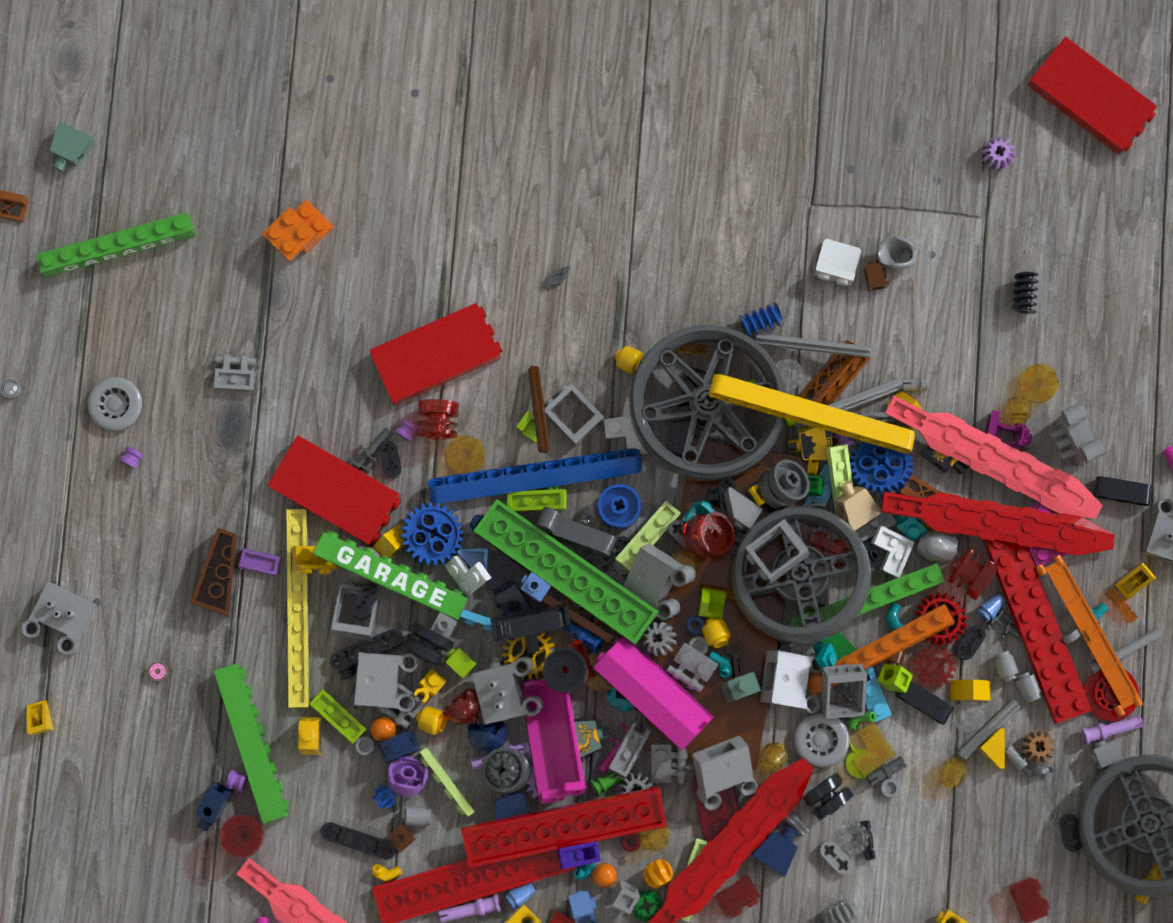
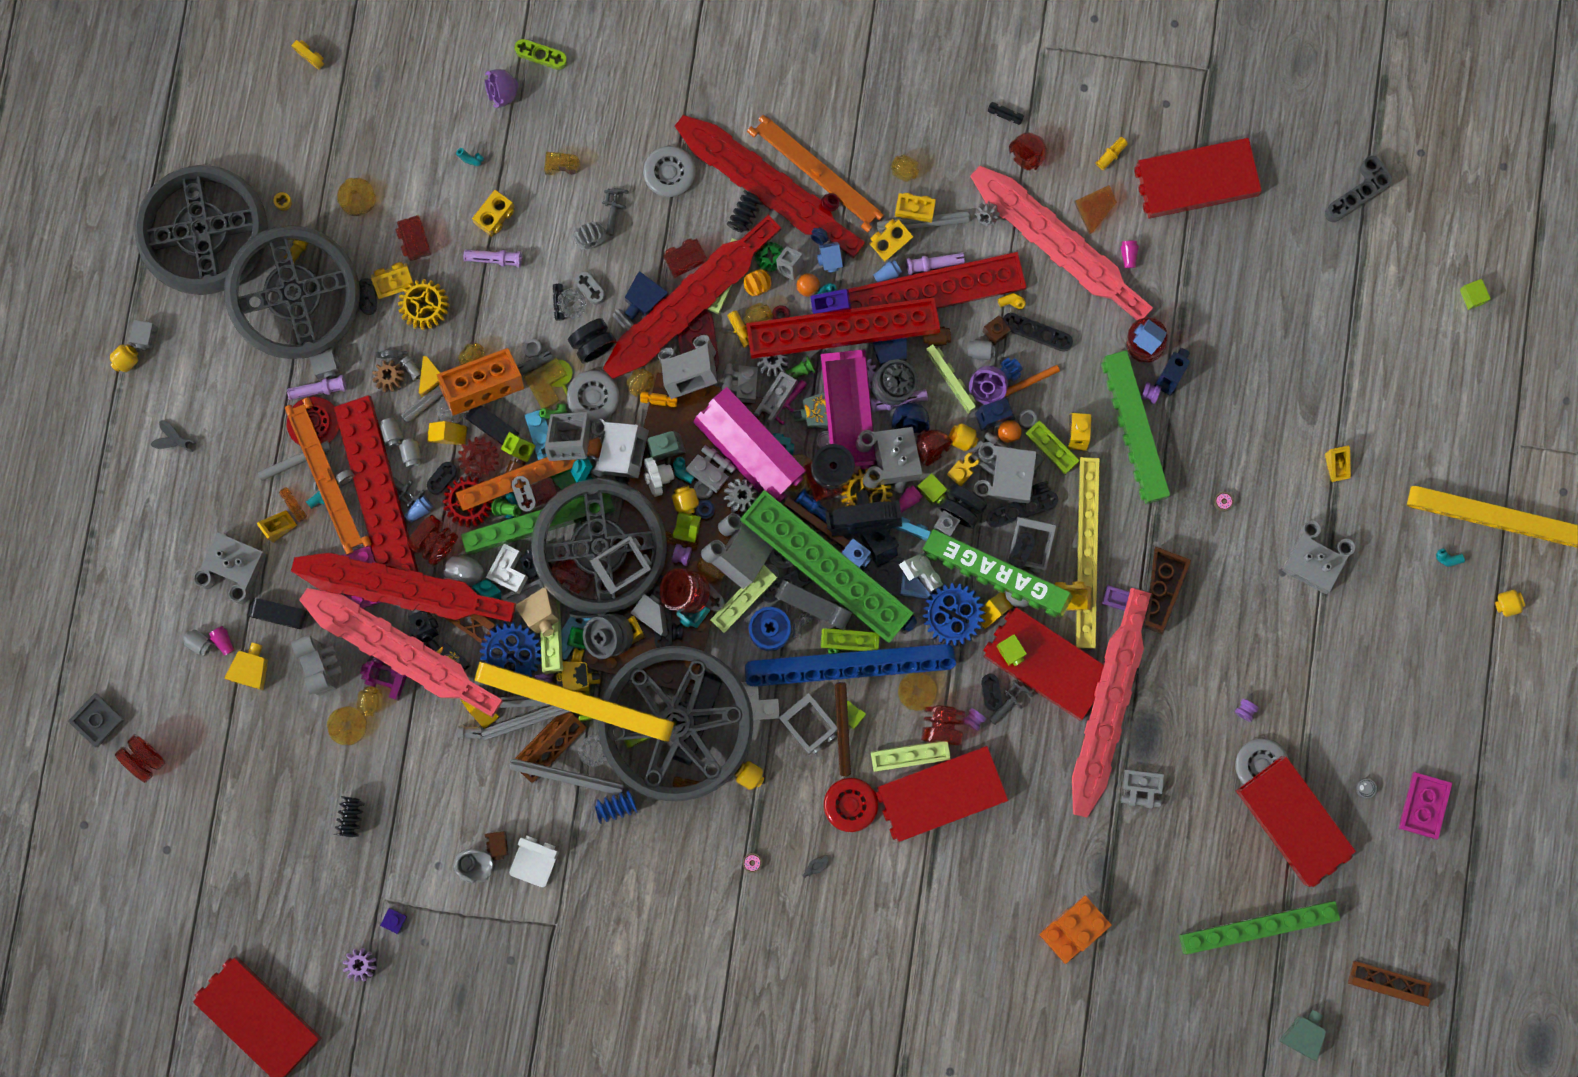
camera: 175 degrees left, 0 degrees up
(80, 349) = (1296, 821): none -> red brick
(239, 834) = (1149, 336): none -> medium blue brick
(269, 454) = (1109, 706): none -> coral plate
(361, 788) = (1031, 380): none -> orange bar
(371, 497) = (1012, 651): none -> lime brick
(455, 827) = (938, 339): none -> reddish brown brick
(472, 389) = (910, 755): none -> yellowish green plate
(484, 652) = (909, 498): none -> dark pink cone
(526, 338) = (850, 804): none -> red wheel
(620, 276) = (752, 863): none -> tile
(673, 824) = (739, 327): none -> yellow axle
(715, 575) = (682, 554): none -> medium lavender wheel
(747, 654) = (657, 475): none -> white plant
(755, 739) = (658, 399): none -> light orange axle
(869, 630) = (542, 491): none -> clear red brick
(888, 623) = (528, 492): none -> light grey beam
(902, 613) = (502, 507): none -> bright green pin
(934, 884) = (502, 258): none -> lavender pin
(938, 755) = (480, 381): none -> orange brick
(970, 198) = (393, 920): none -> dark purple plate
(972, 485) = (423, 626): none -> black brick
(1006, 834) = (416, 301): none -> yellow gear
(1046, 852) = (391, 280): none -> yellow bracket
(1144, 433) = (249, 668): none -> yellow torso

